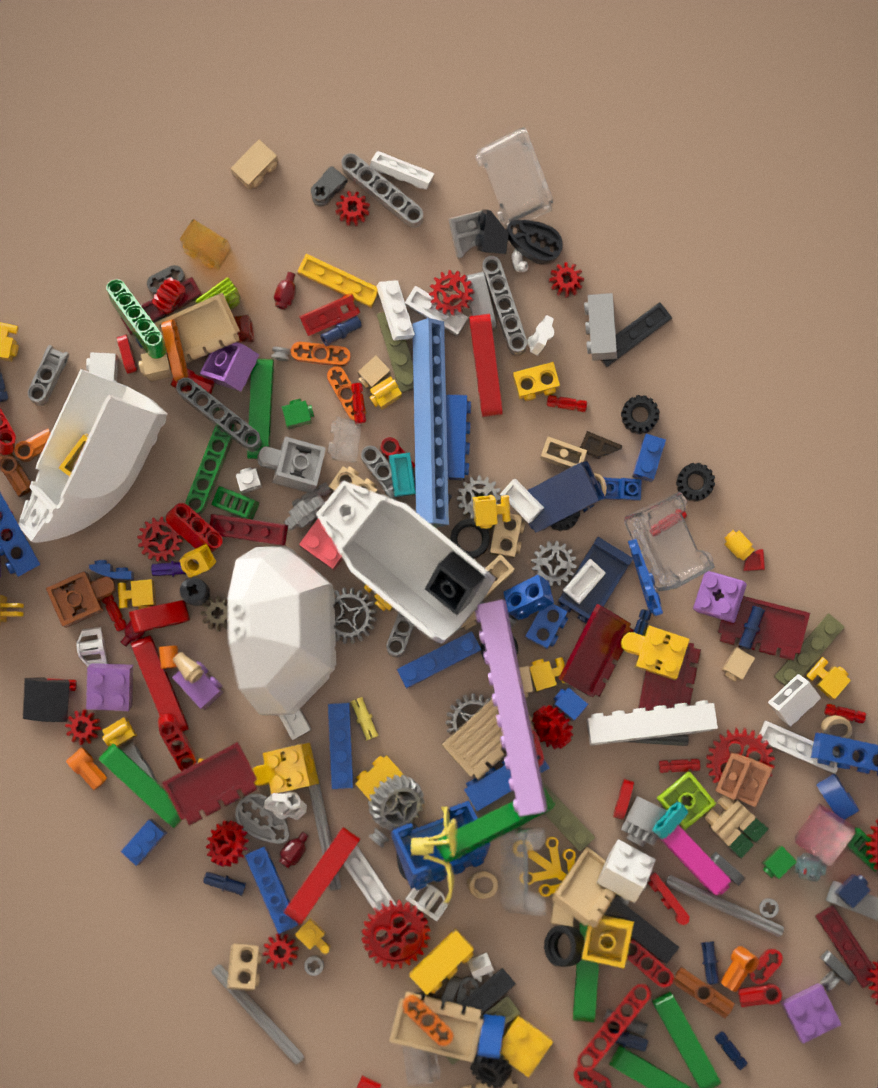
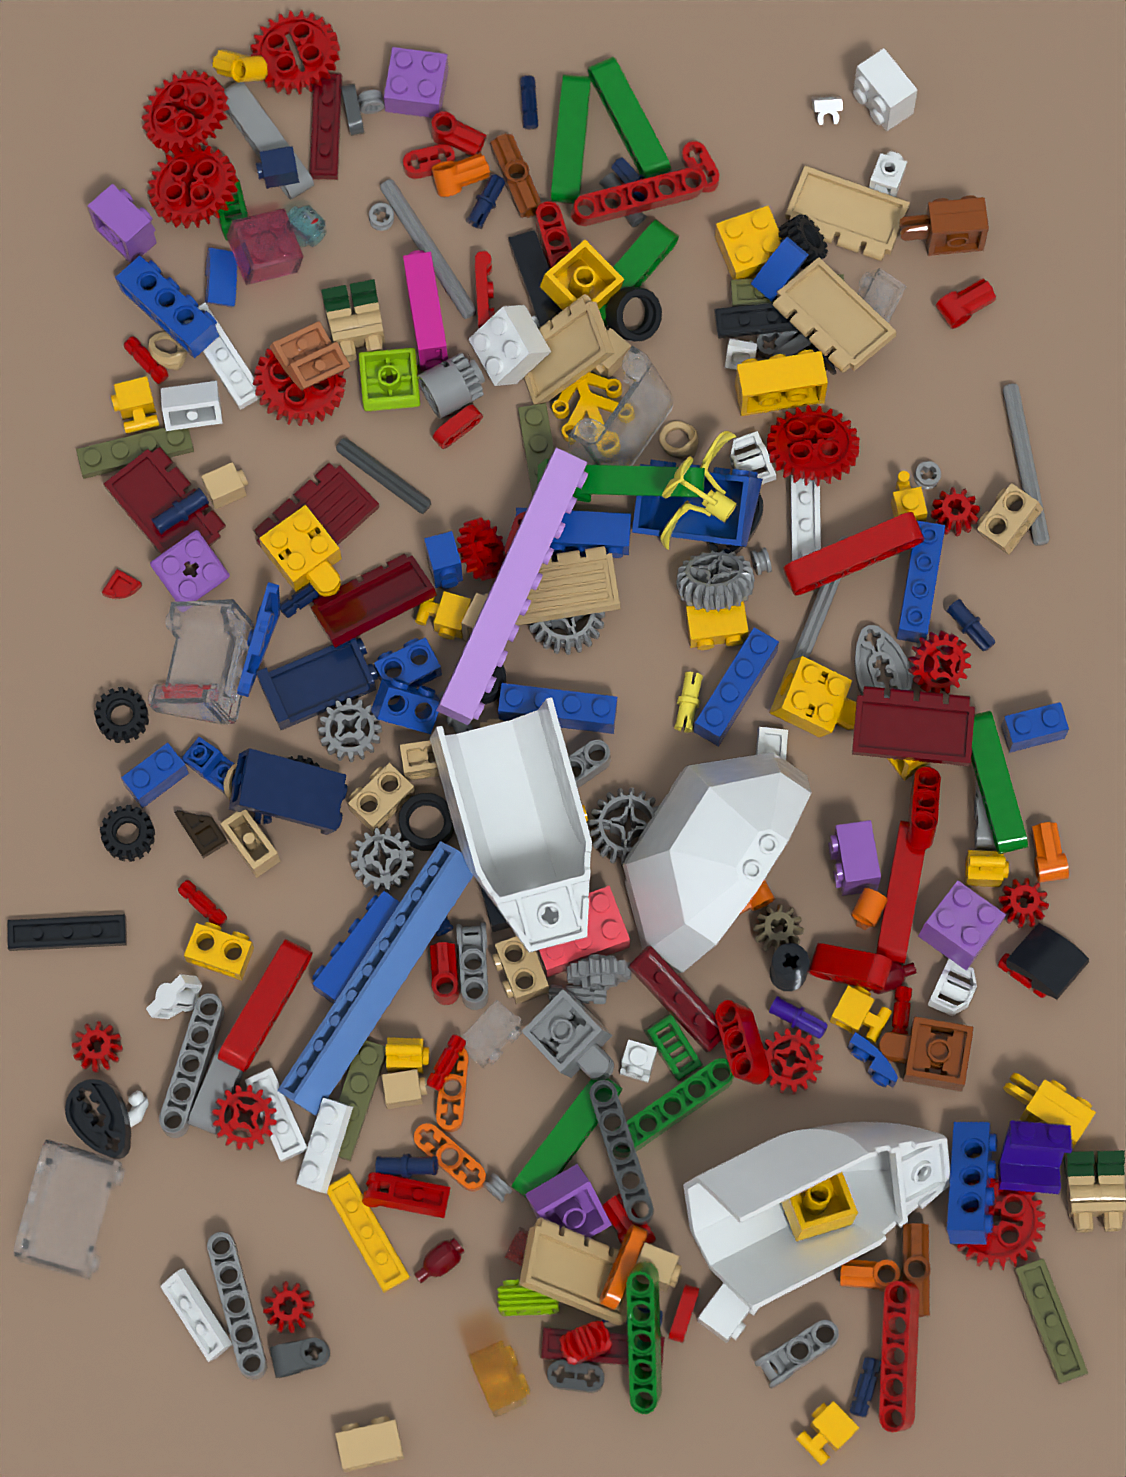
camera: 145 degrees left, 10 degrees down
(189, 669) = (855, 871): tan cone -> none
(203, 556) = (762, 997): yellow brick -> none
(286, 808) = (848, 661): white piece -> none
(293, 851) = (868, 610): dark red plant -> none
(297, 413) = (526, 1101): green brick -> none
(402, 474) = (453, 940): teal tile -> none
(420, 1005) = (841, 314): orange beam -> none
(454, 583) = (482, 761): black brick -> none
(464, 232) = (166, 1185): light grey wing -> none
(486, 510) = (383, 832): yellow brick -> none
(492, 235) = (147, 1155): black slope -> none
(522, 501) = (336, 818): white tile -> none
(584, 581) = (330, 687): white tile -> none
(601, 326) = (98, 960): light grey brick -> none
(651, 724) = (368, 480): white brick -> none
(670, 820) = (422, 360): teal beam -> none
(680, 765) = (369, 423): red axle -> none
(732, 873) = (397, 282): dark grey beam -> none
(738, 544) = (125, 613): yellow brick -> none
(778, 862) = (336, 253): green brick -> none

